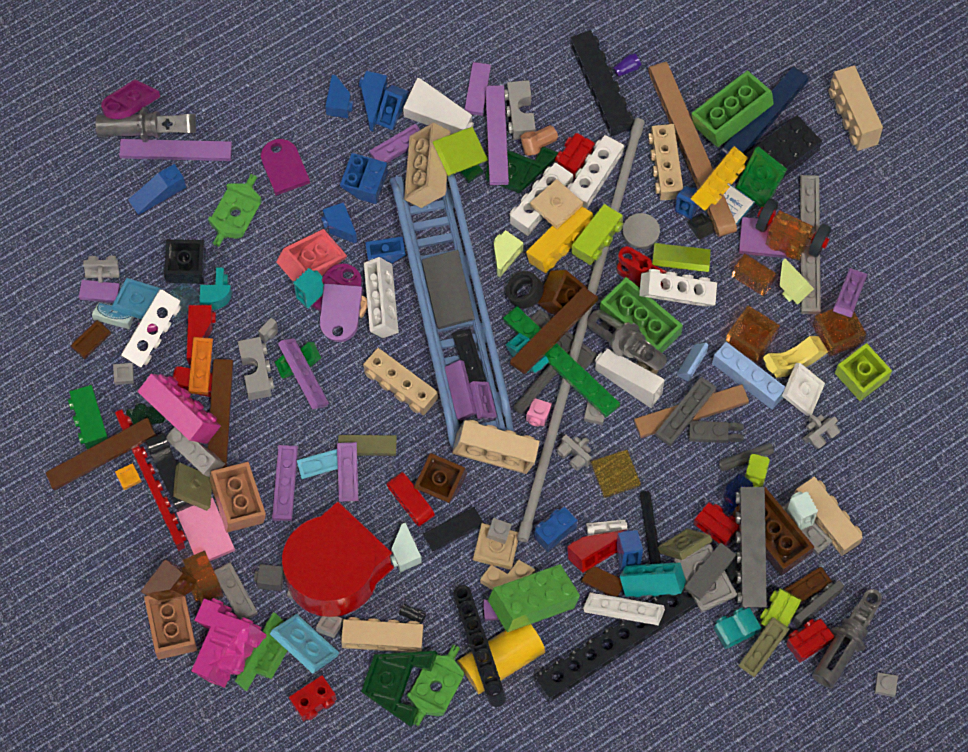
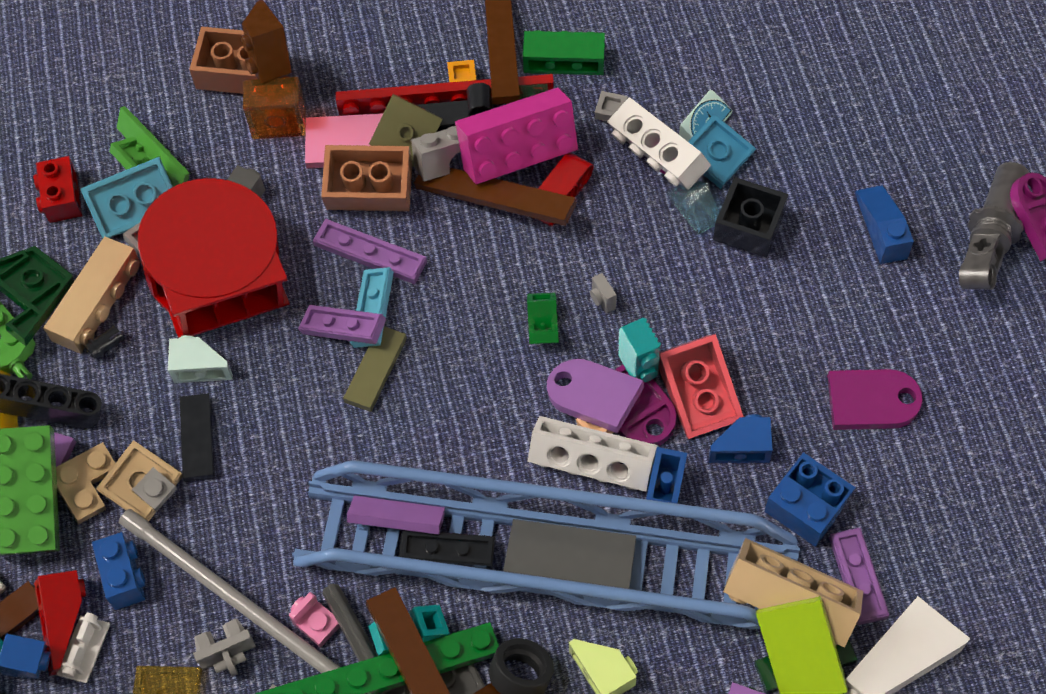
camera: 115 degrees right, 5 degrees down
(90, 339) = (678, 87): reddish brown tile -> none
(98, 291) = (749, 112): medium lavender tile -> none
(101, 268) = (775, 118): light grey hips -> none
(175, 150) = (944, 268): medium lavender tile -> none
(199, 325) = (641, 209): red slope -> none
(200, 365) = (583, 187): orange tile -> none
(218, 294) = (687, 249): teal brick -> none
(226, 644) = (175, 106): dark pink brick -> none
(235, 592) = (248, 150): light grey tile -> none
(237, 197) = (802, 290): bright green plate -> none
(258, 383) = (572, 267): light grey arch -> none
(303, 373) = (514, 313): medium lavender tile -> none
(338, 99) = (970, 510): blue slope -> none
(373, 89) = (960, 563): blue slope -> none
(391, 106) = (933, 584): blue slope -> none
(400, 381) = (452, 437): tan brick -> none
(410, 499) = (265, 393): red beam -> none
(441, 478) = (269, 437): reddish brown slope -> none
(480, 400) = (365, 529): medium lavender tile -> none
(495, 446) = (272, 521): tan brick -> none

